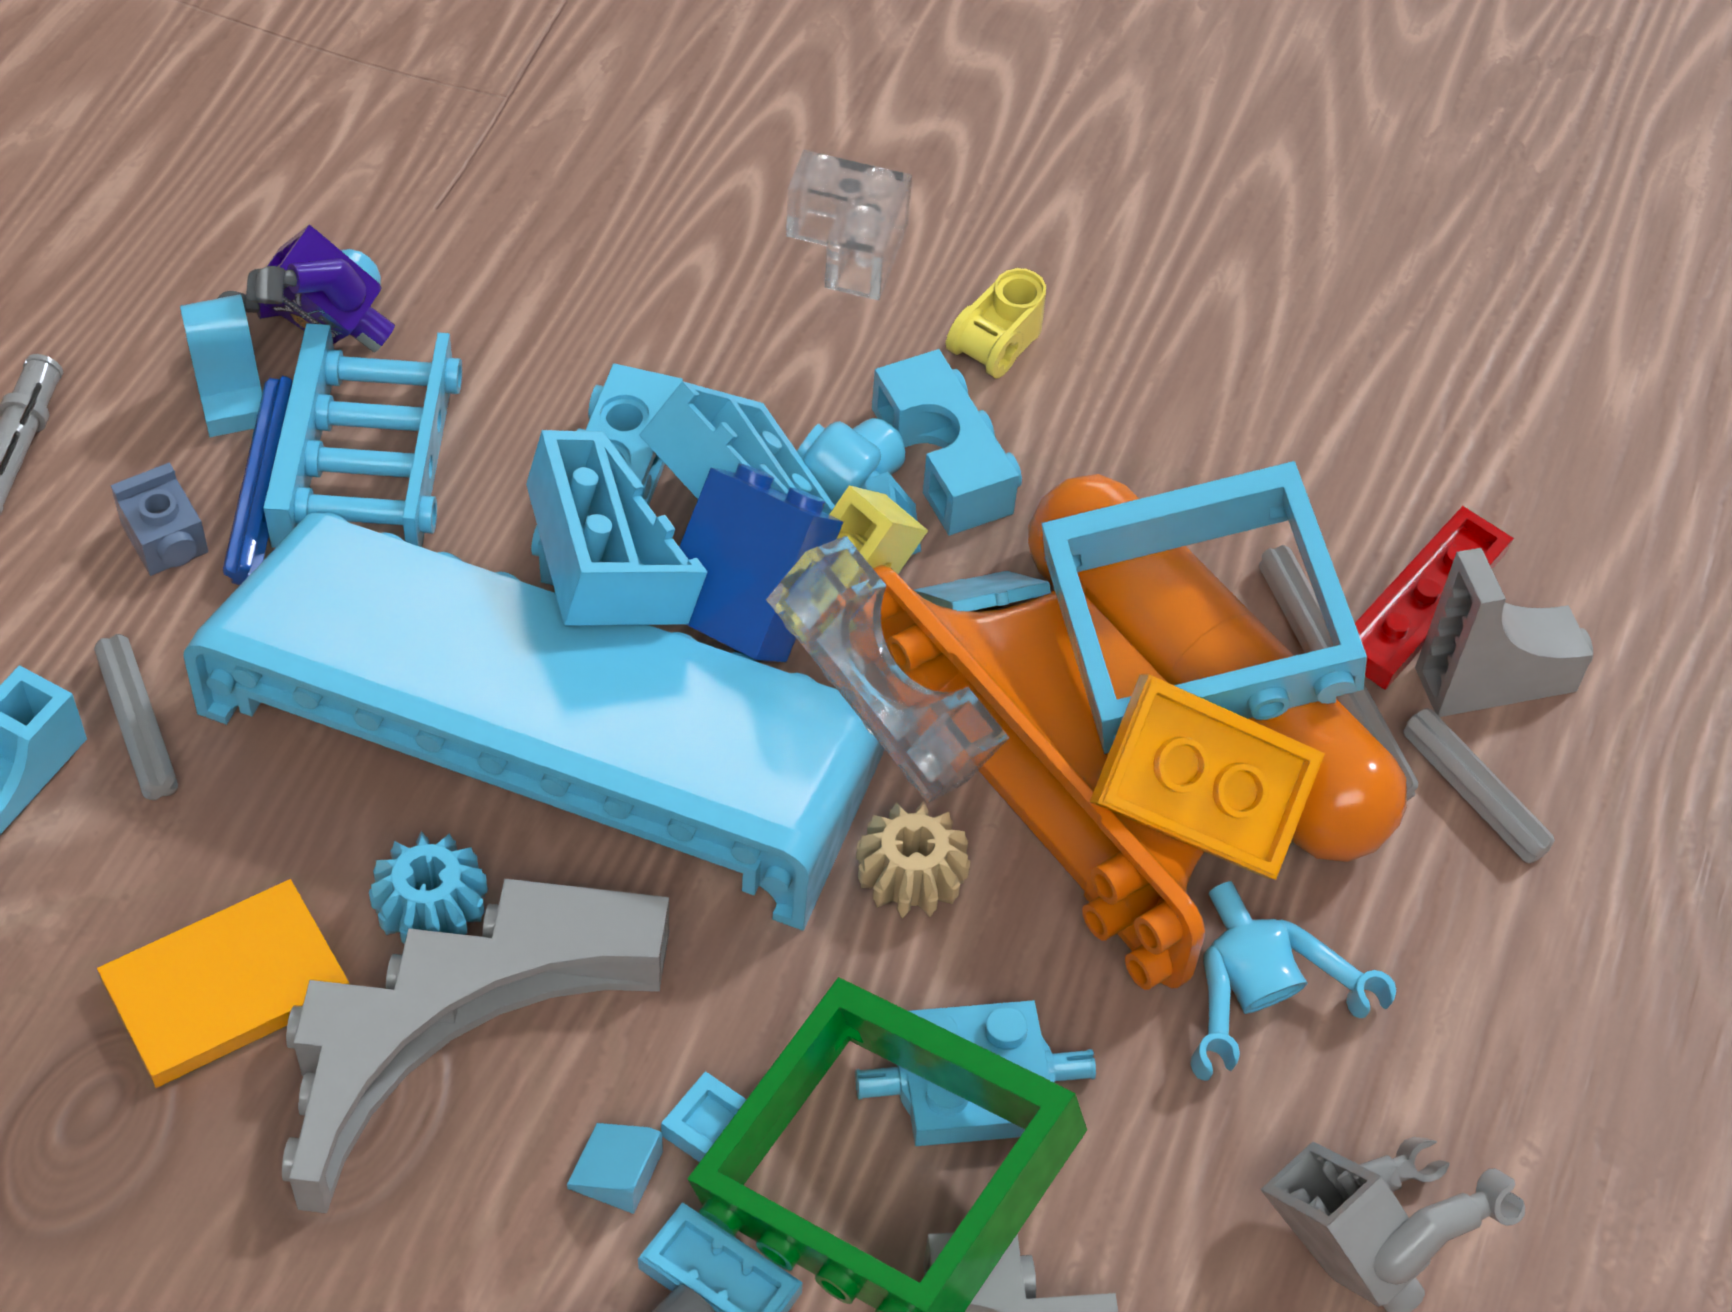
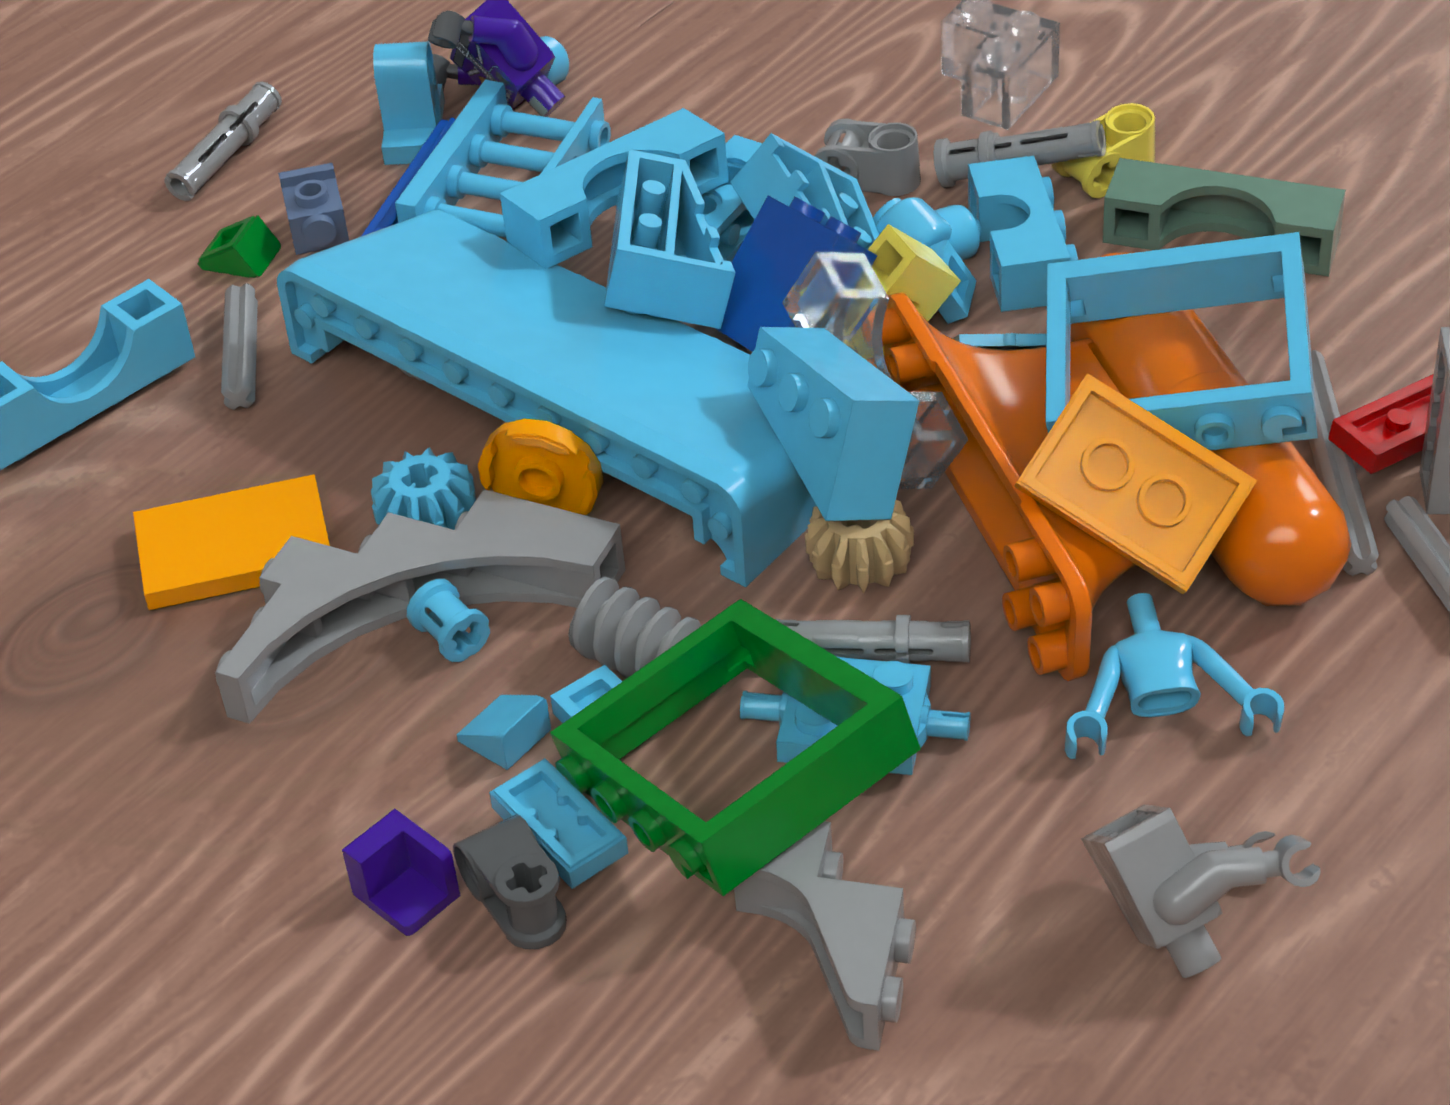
camera: 25 degrees right, 10 degrees down
(85, 582) = (241, 249): none -> green slope
(464, 507) = (554, 211): none -> medium azure arch
(511, 1044) = (448, 620): none -> medium azure bush
(558, 842) = (541, 465): none -> light orange tile
(721, 1028) = (623, 628): none -> light grey piece
(761, 361) = (876, 154): none -> light grey piece
(872, 740) = (835, 419): none -> medium azure wedge
(884, 346) = (1045, 145): none -> light grey pin
(977, 978) = (889, 639): none -> light grey pin
(1208, 388) = (1160, 202): none -> sand green arch

